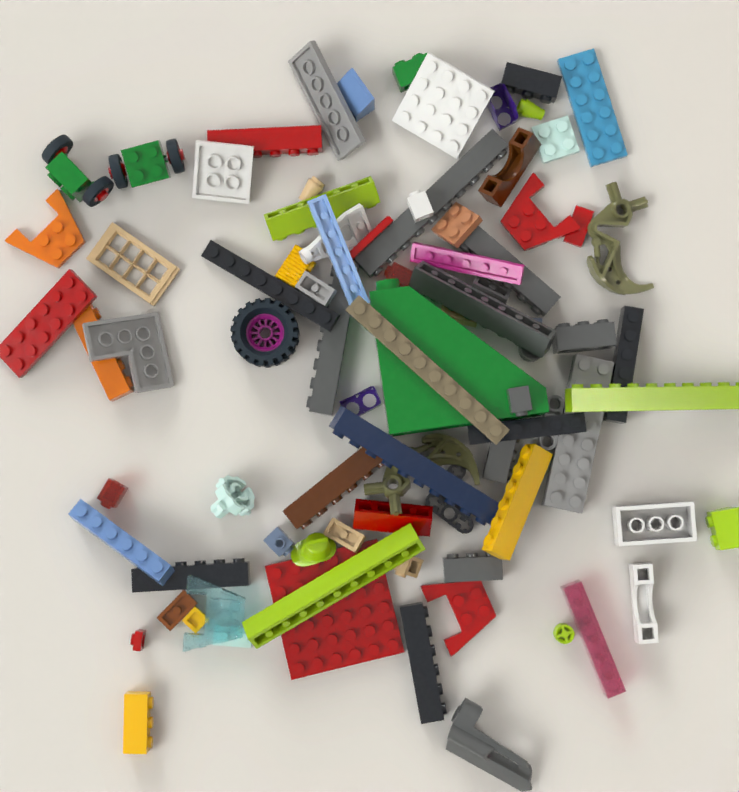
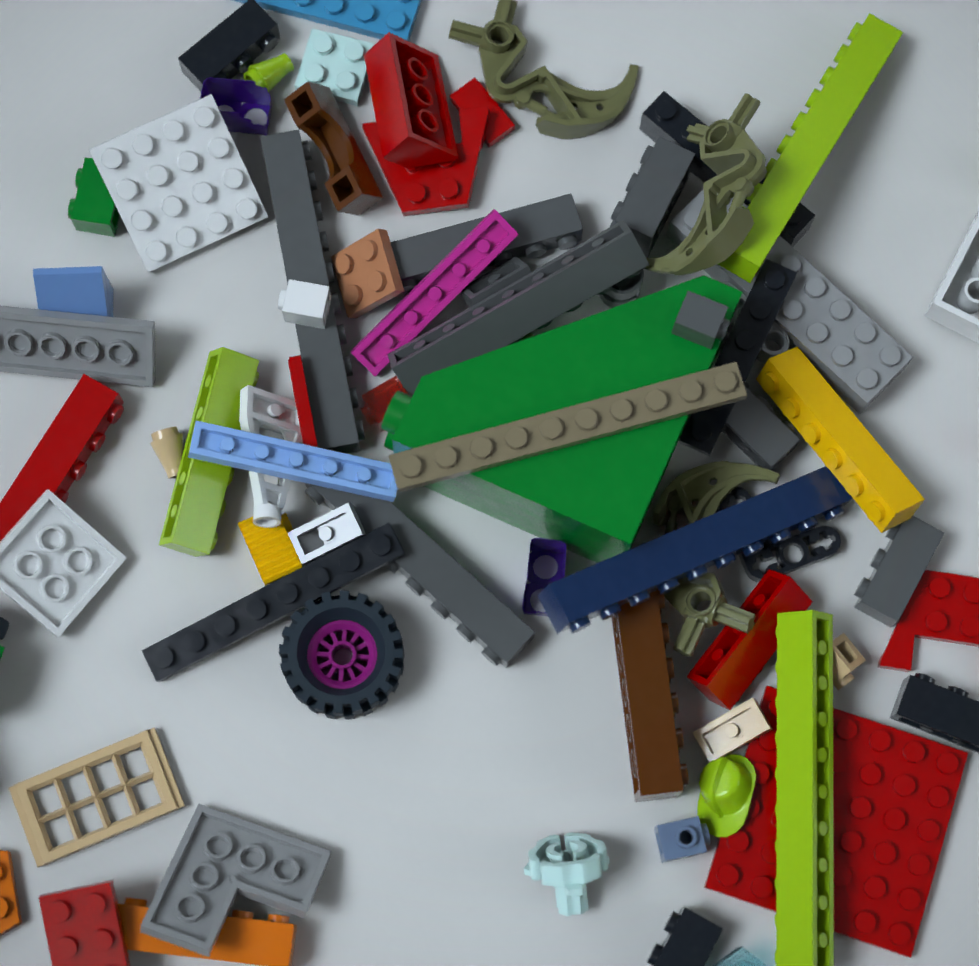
camera: 65 degrees left, 10 degrees down
(556, 189) = (409, 103): none -> red slope
(580, 381) = (738, 168): none -> olive piece

